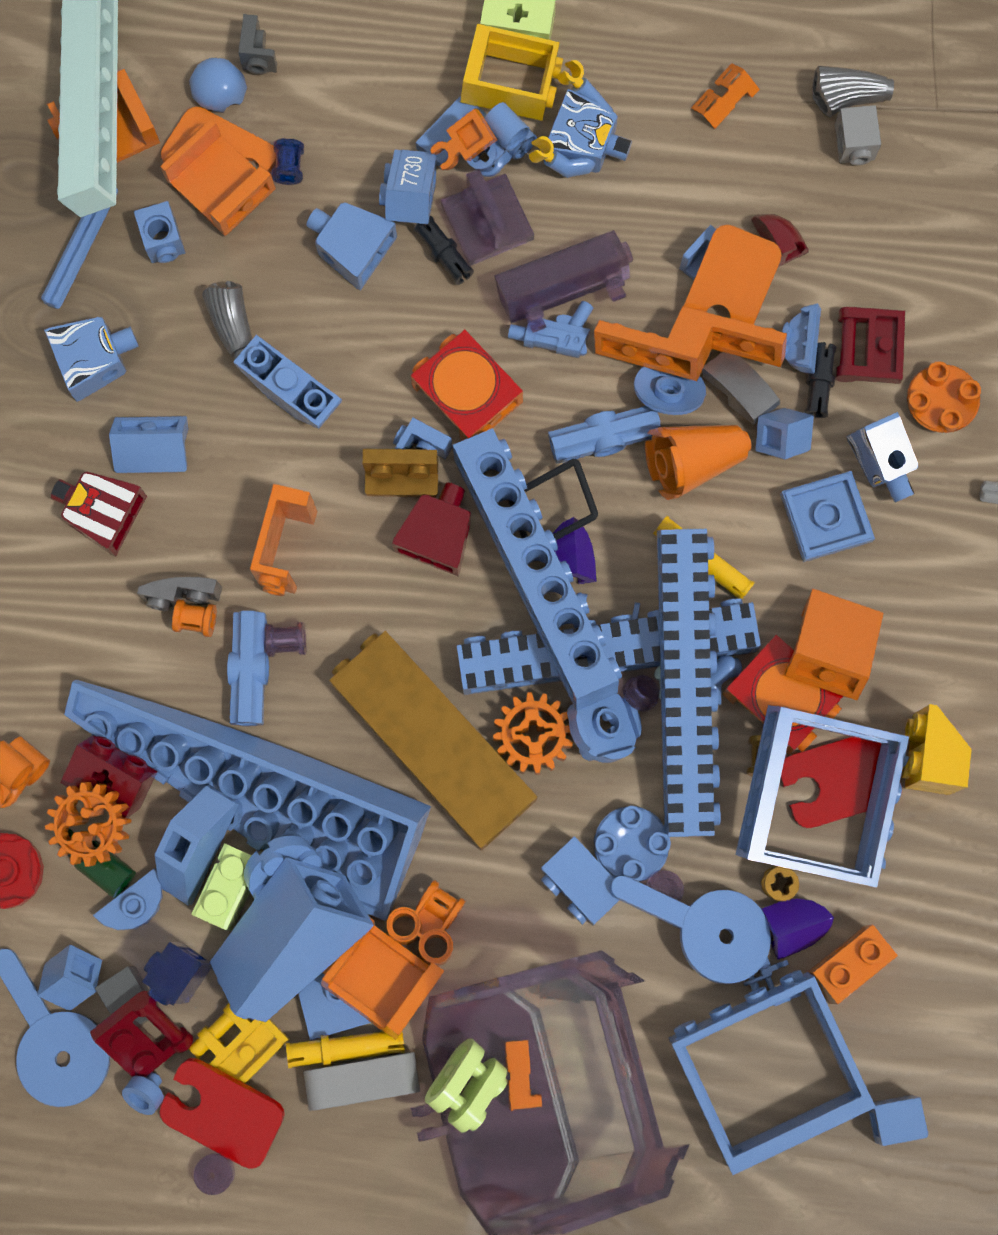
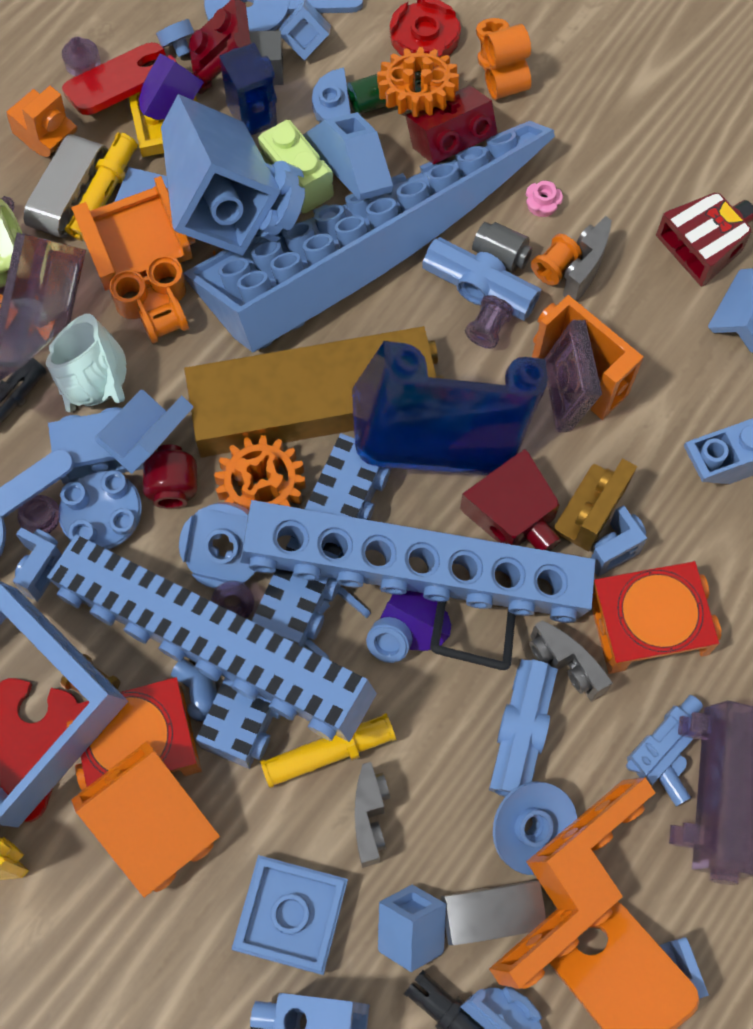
camera: 120 degrees right, 10 degrees down
(138, 672) = (540, 205): none -> bright pink plate
(207, 667) = (504, 244): none -> dark grey brick
(220, 1048) = (163, 85): none -> dark purple brick
(308, 540) = (572, 376): none -> tile
(315, 1144) = (41, 121): none -> orange brick
(432, 637) = (438, 422): none -> clear blue windscreen
(523, 930) = (87, 364): none -> light aqua helmet
(534, 437) = (559, 650): none -> flat silver slope
(555, 839) = (140, 429): none -> medium blue panel
(572, 806) = (170, 477): none -> dark red head
(598, 562) = (389, 639): none -> medium blue tile
(693, 455) = (441, 808): orange cone -> none
(710, 856) = (34, 568): none -> medium blue bracket
(723, 507) = (369, 800): none -> flat silver slope

